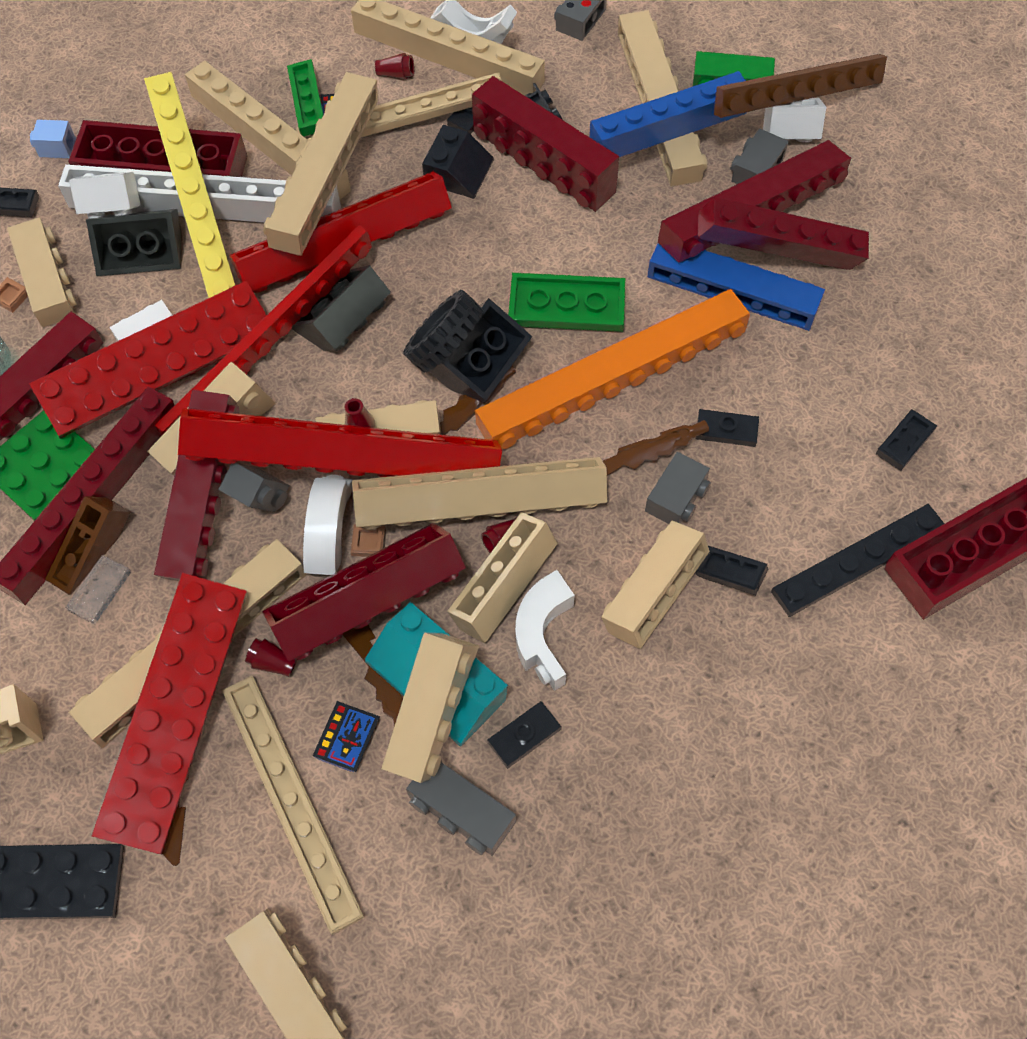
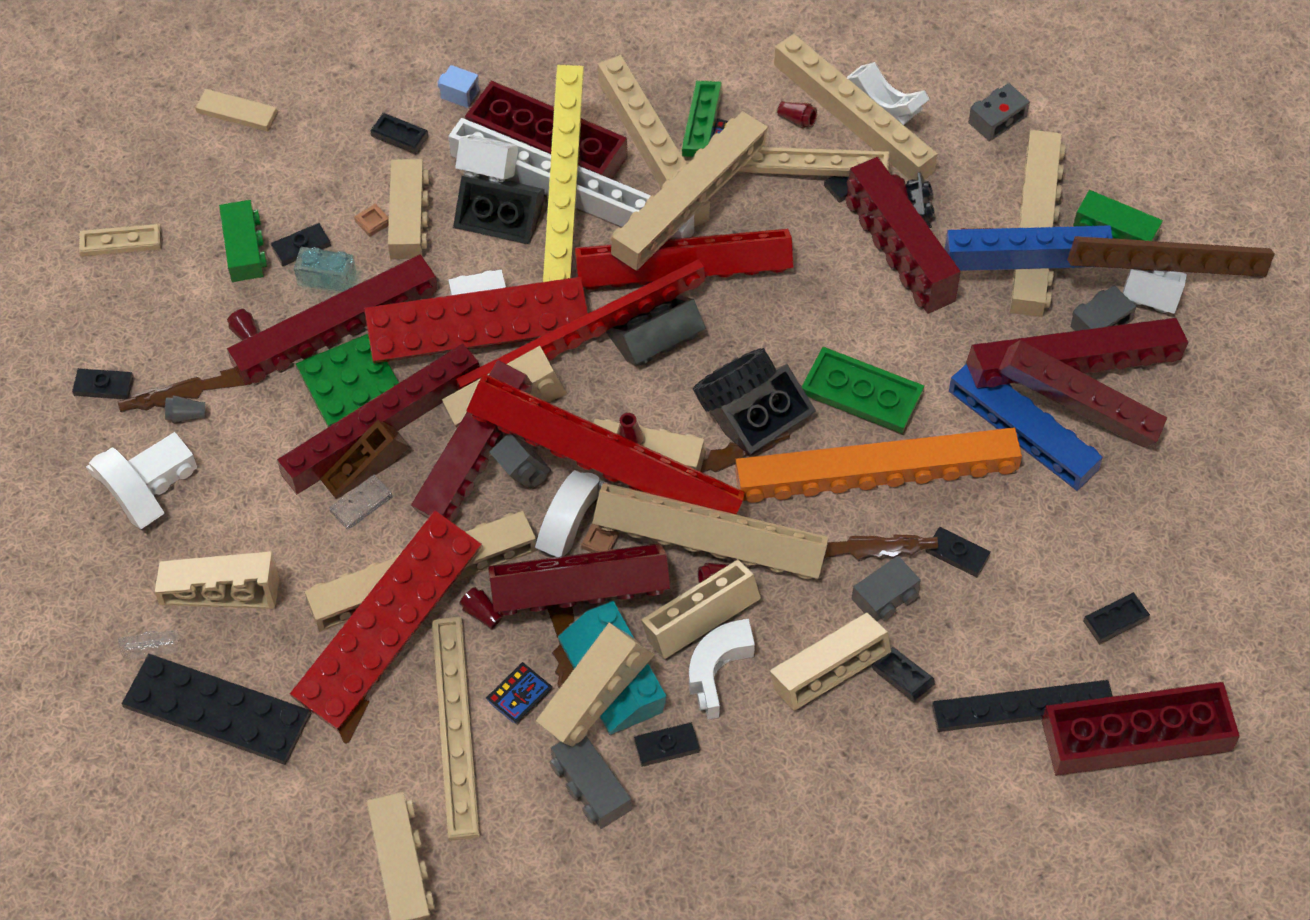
camera: 20 degrees right, 5 degrees down
(458, 160) = (816, 225): black slope -> none

